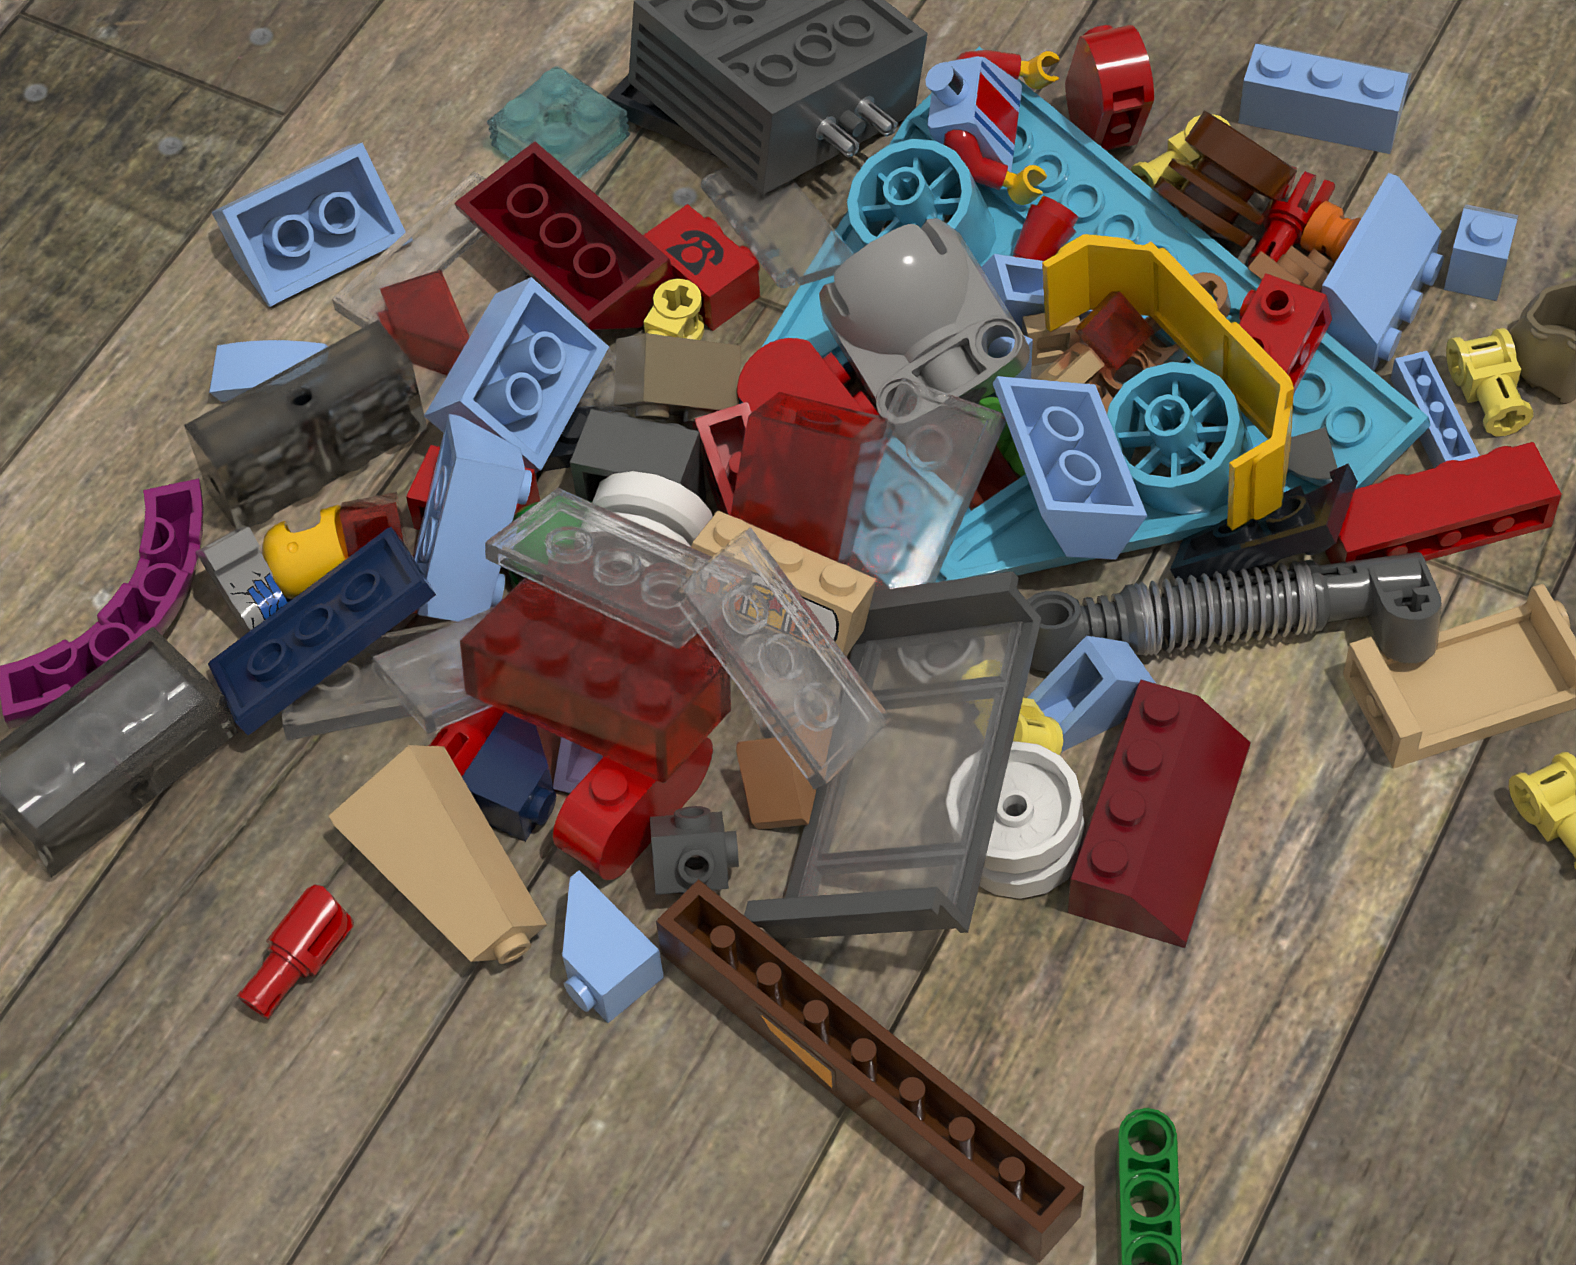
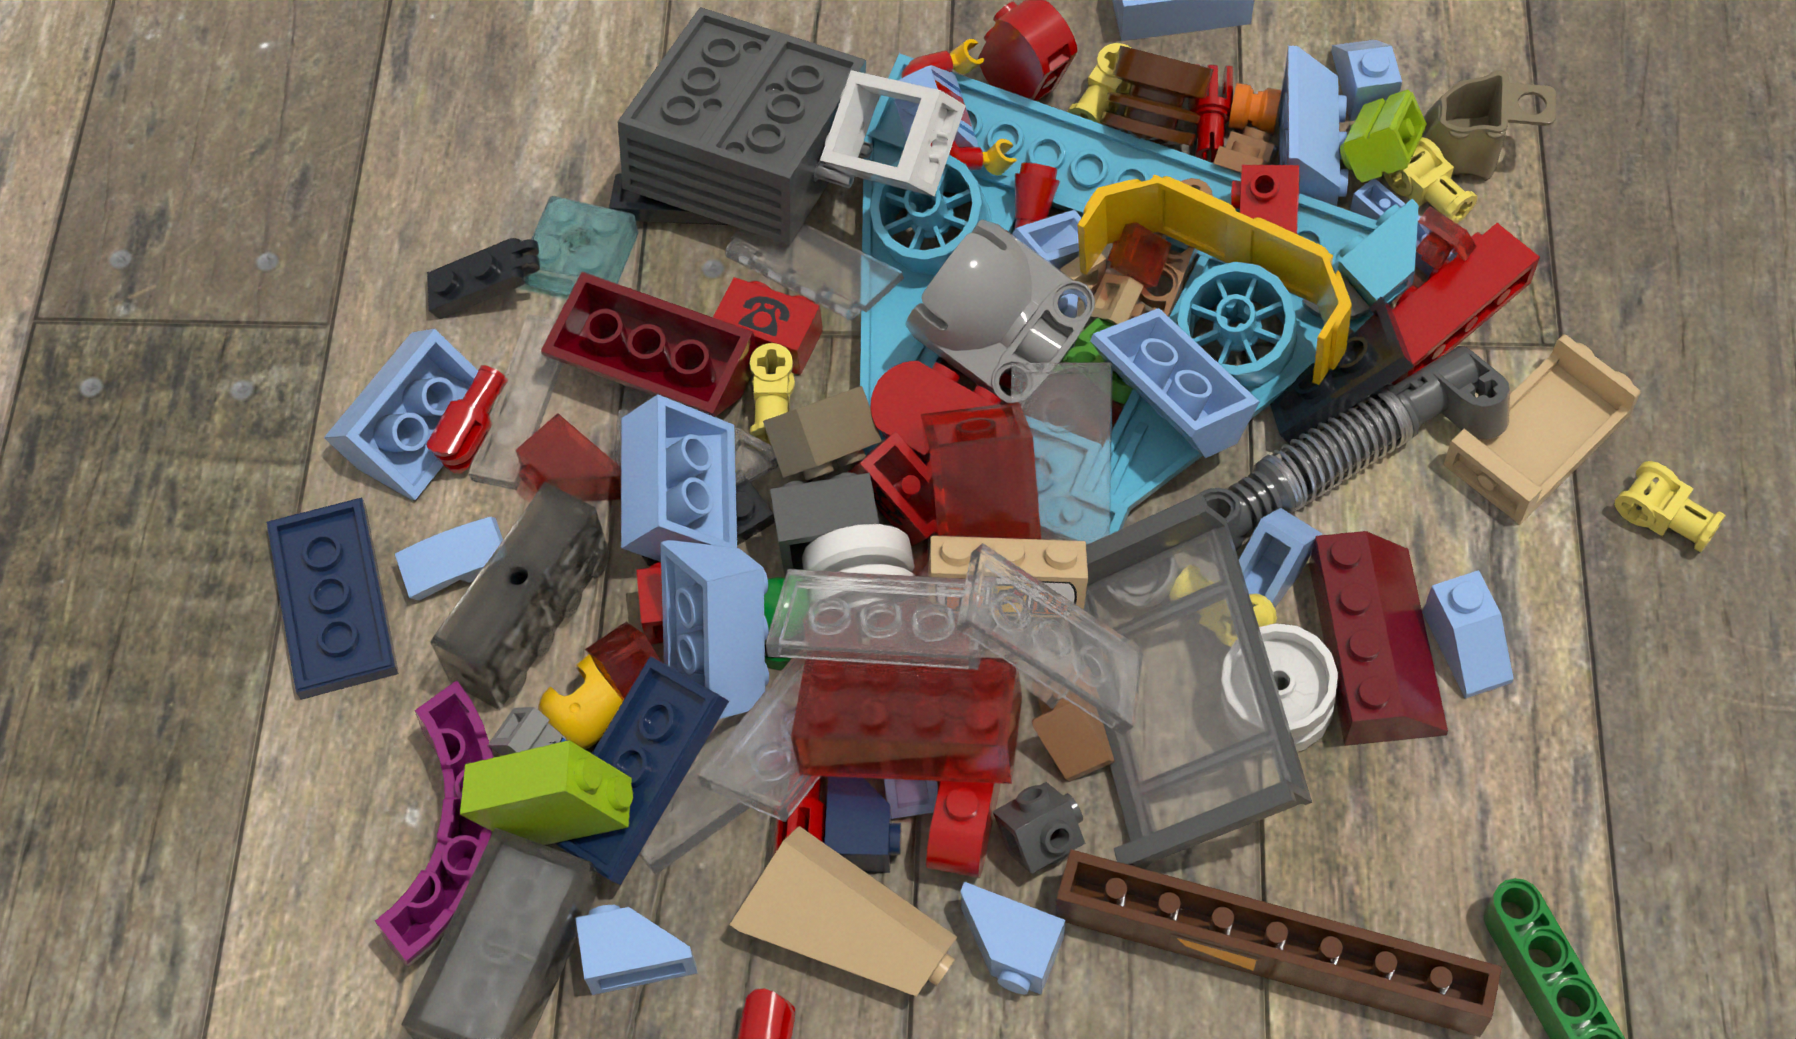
camera: 25 degrees left, 5 degrees up
(140, 367) = (331, 598): none -> dark blue tile
(215, 612) = (547, 794): none -> lime brick
(220, 802) = (628, 950): none -> light blue slope
(352, 247) = (467, 421): none -> red arm
(445, 116) = (481, 276): none -> black hinge
(905, 144) = (920, 164): none -> white window
(1263, 851) = (1469, 633): none -> light blue slope
(1381, 427) = (1386, 258): none -> medium azure slope
(1452, 433) = (1442, 238): none -> clear red tile
(1456, 308) = (1383, 136): none -> lime brick

